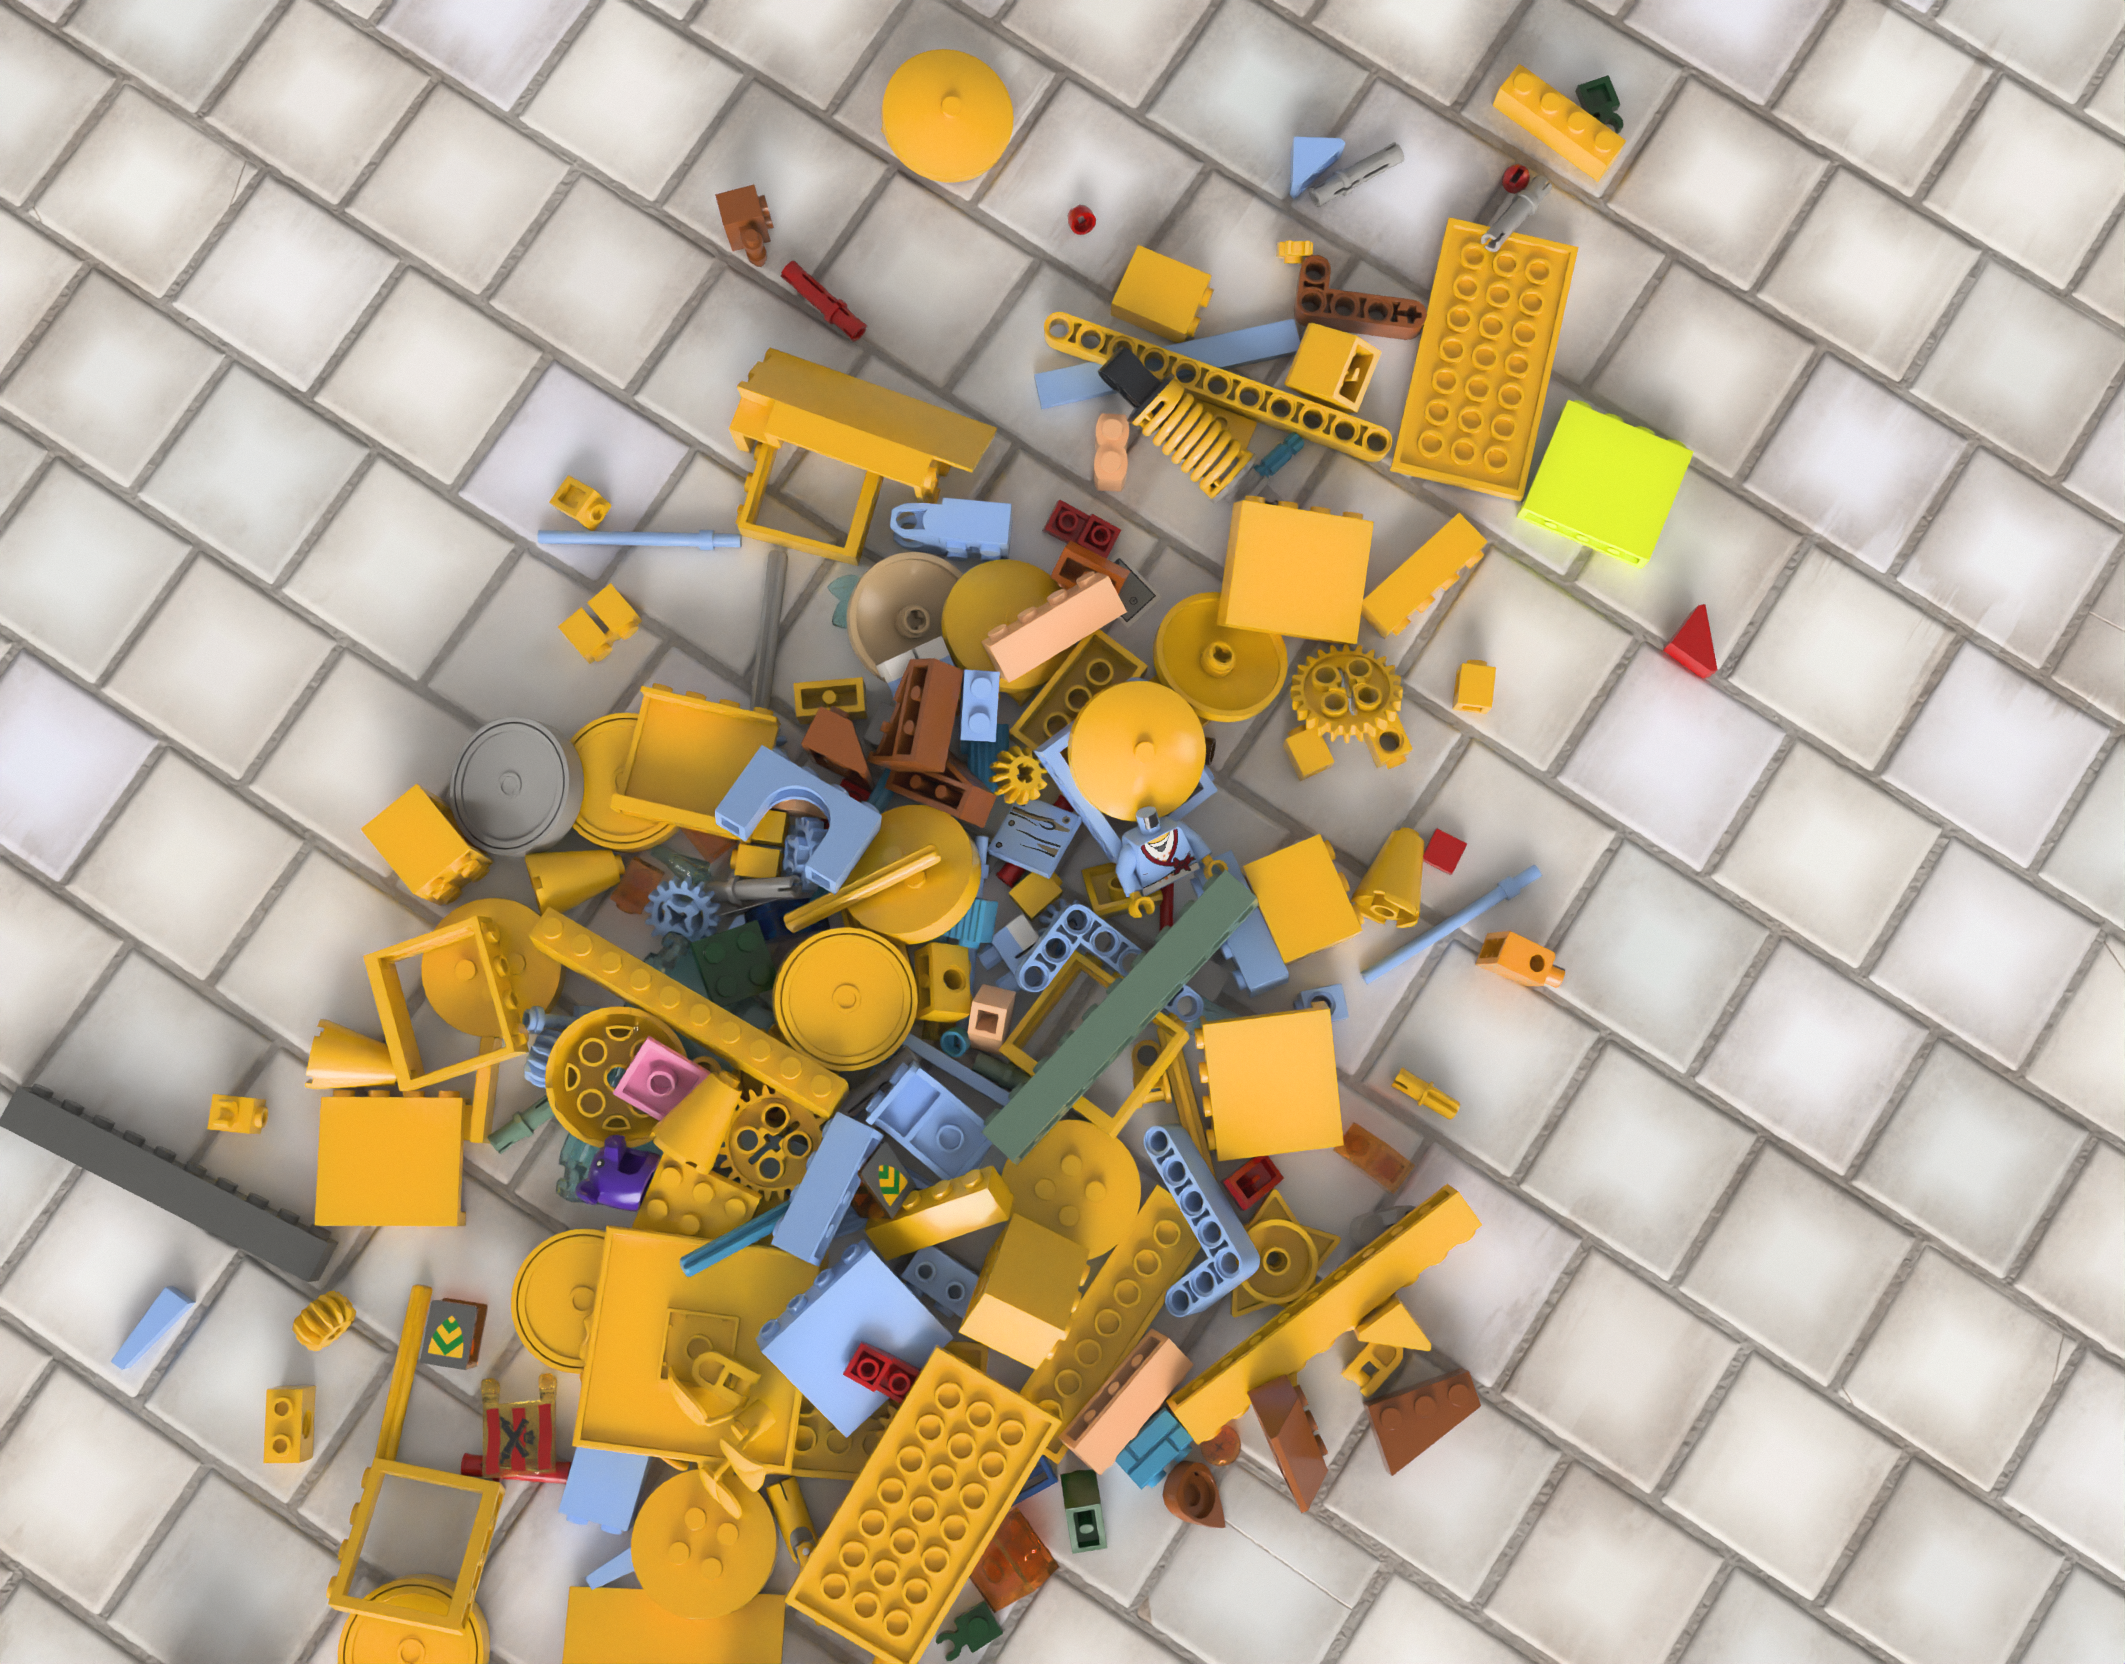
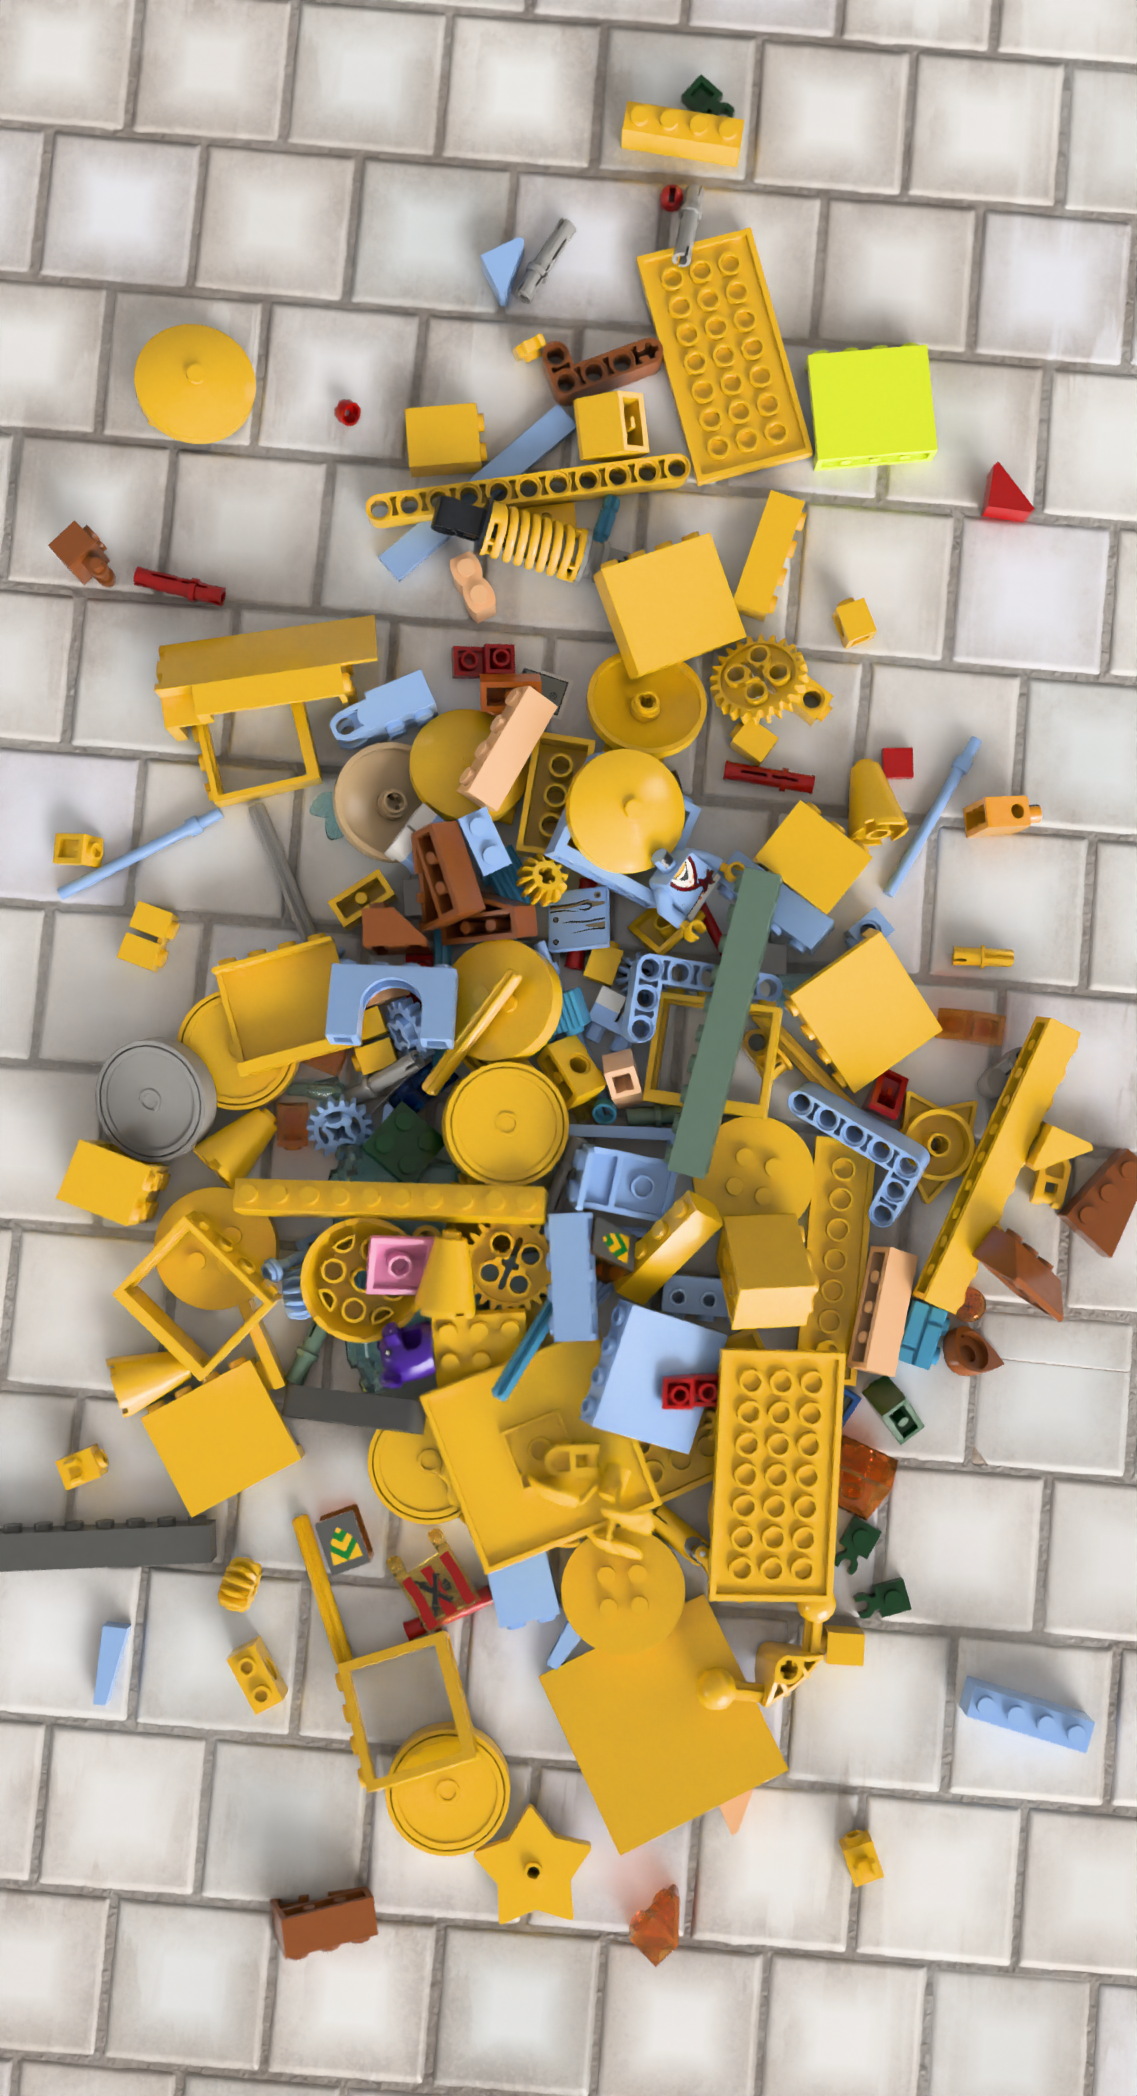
camera: 30 degrees left, 5 degrees up
(536, 1205) = (354, 1409): none -> dark grey beam
(1275, 772) = (769, 777): none -> red pin

